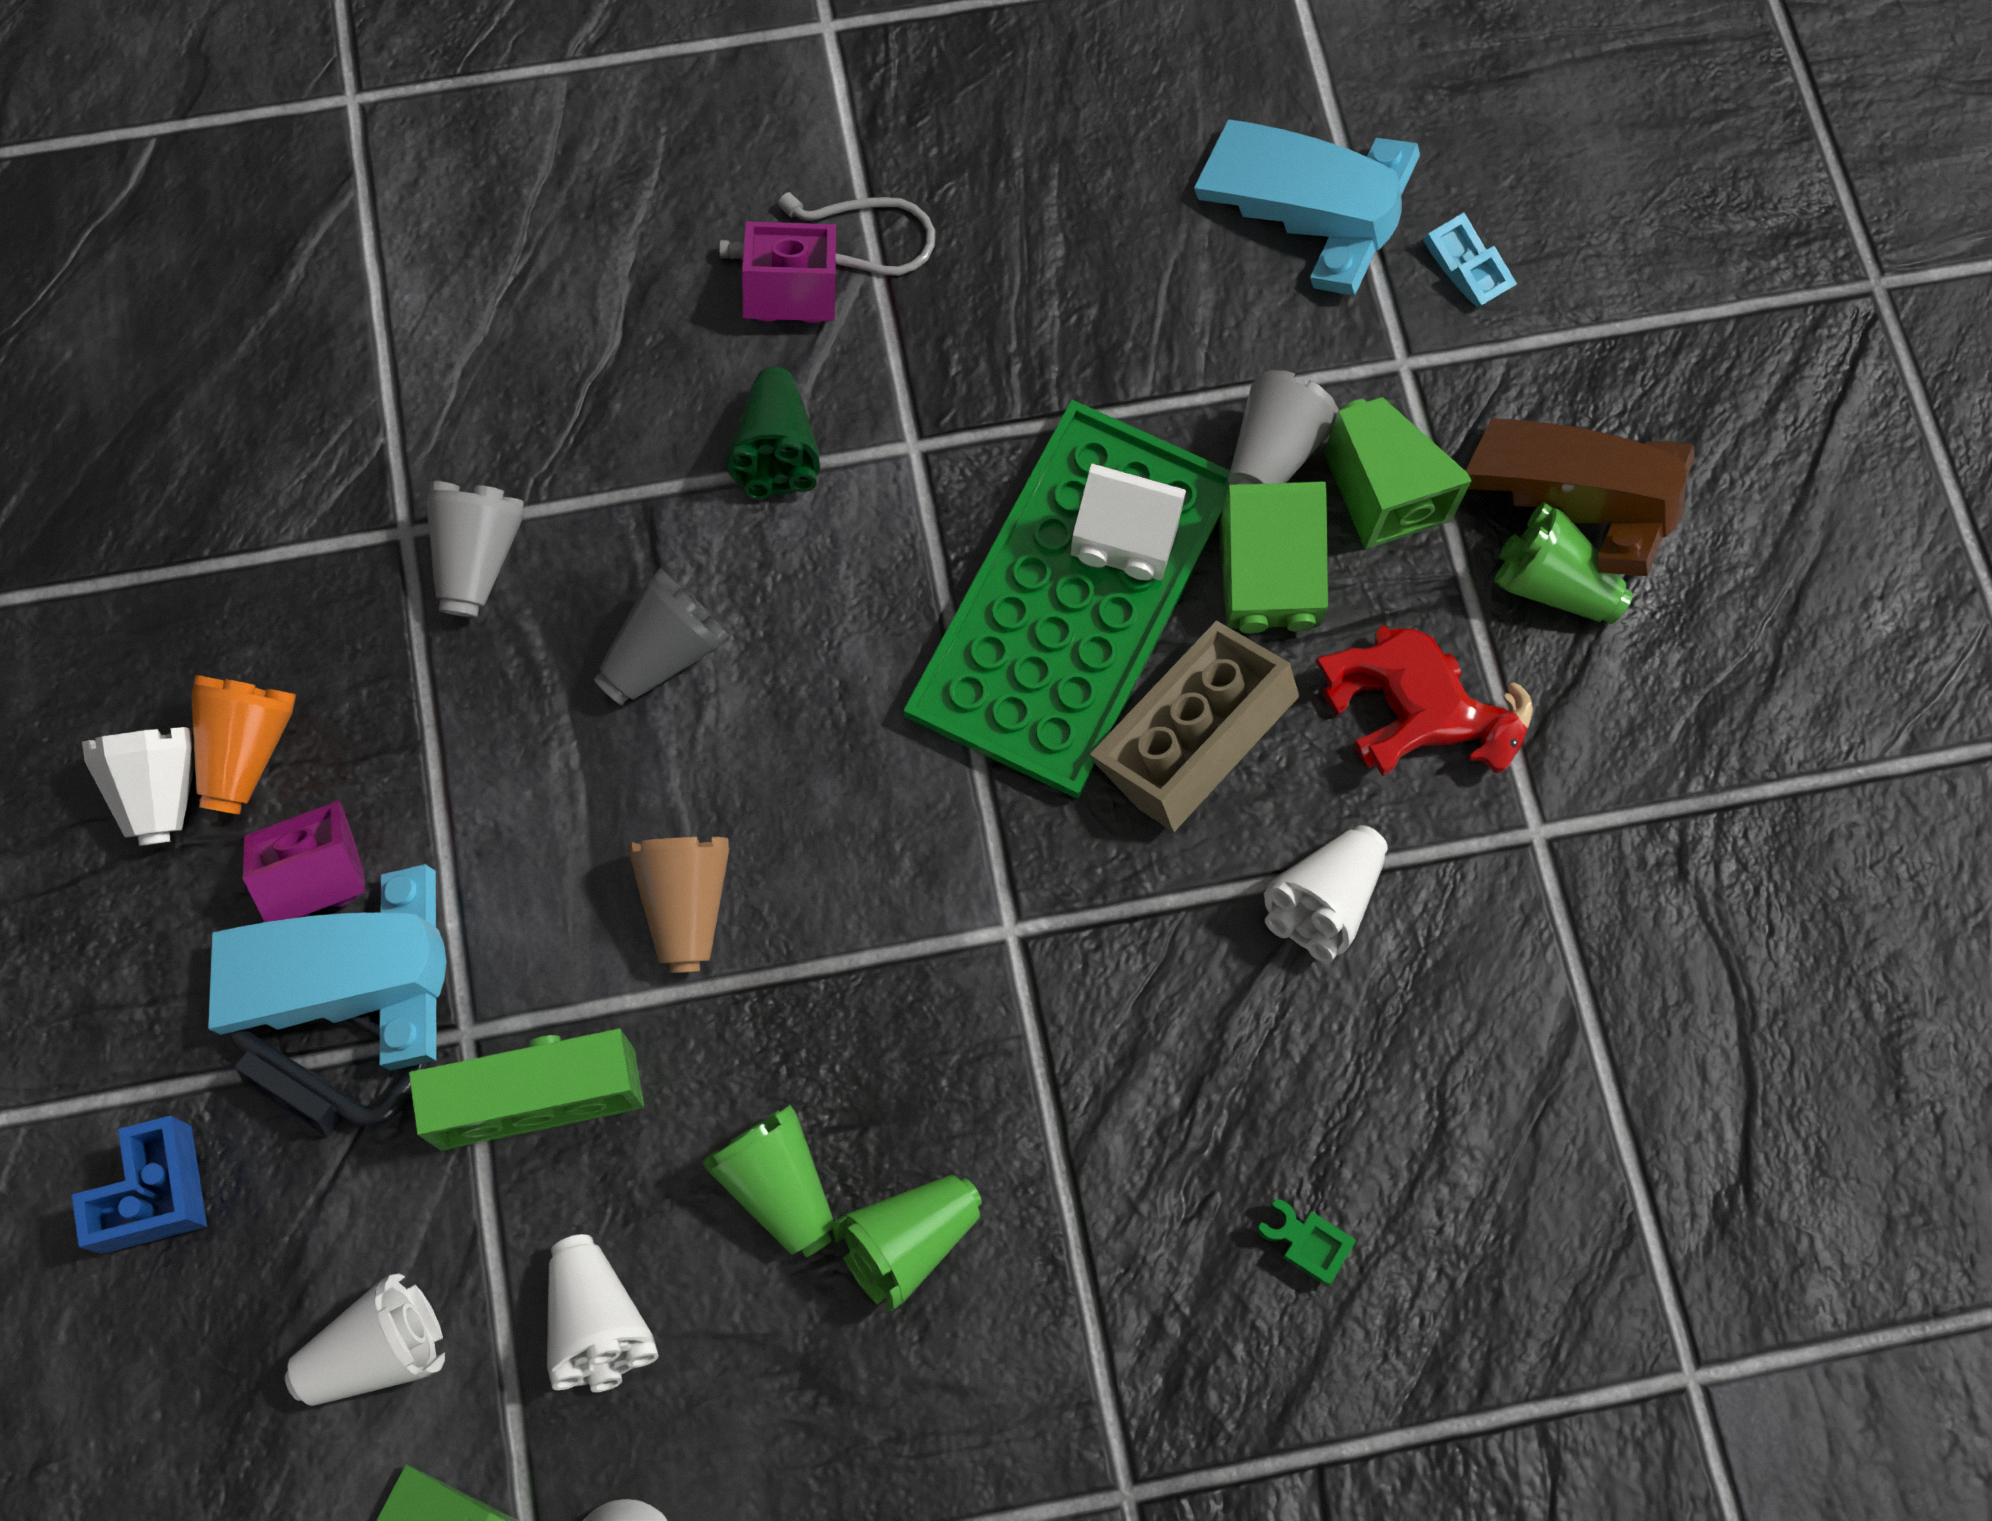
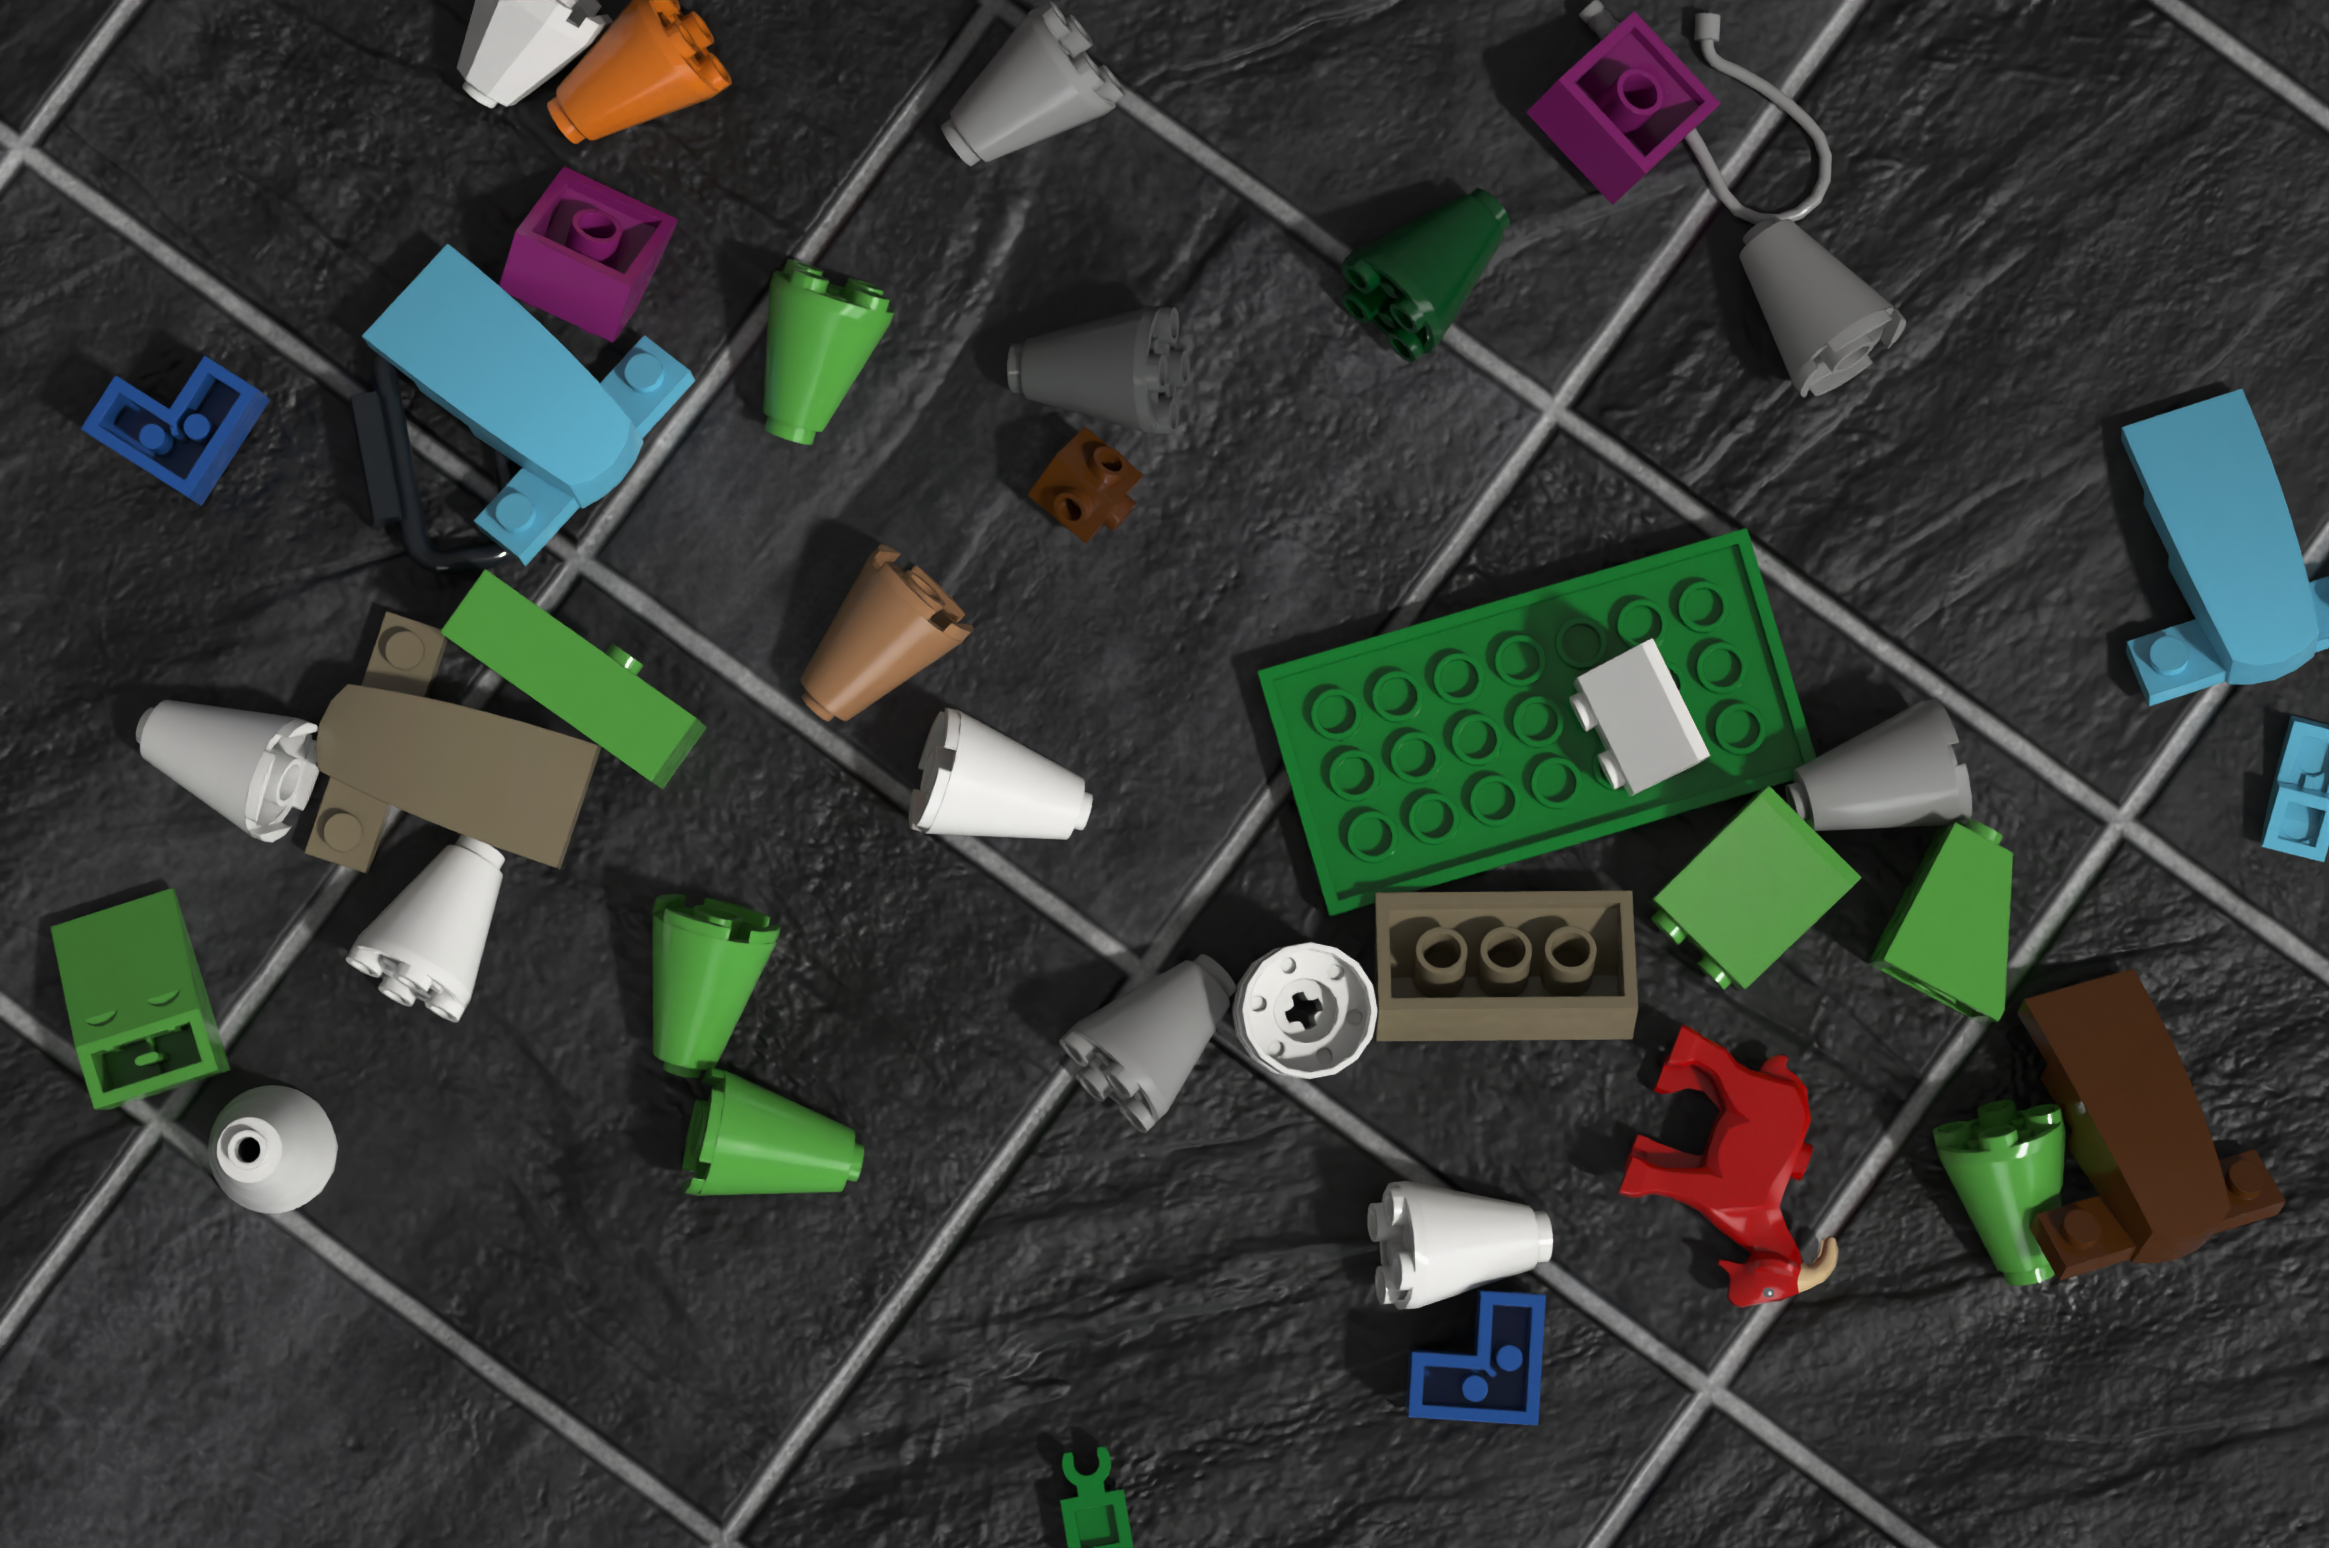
camera: 50 degrees right, 15 degrees up
(484, 780) = (816, 346): none -> bright green cone
(496, 1220) = (439, 762): none -> dark tan slope
(711, 707) = (1087, 486): none -> reddish brown brick
(825, 909) = (993, 786): none -> white cone
(987, 266) = (1815, 306): none -> light grey cone
(1057, 955) = (1150, 1039): none -> light grey cone
(1125, 823) = (1337, 1028): none -> white wheel
(1431, 932) = (1496, 1380): none -> blue brick

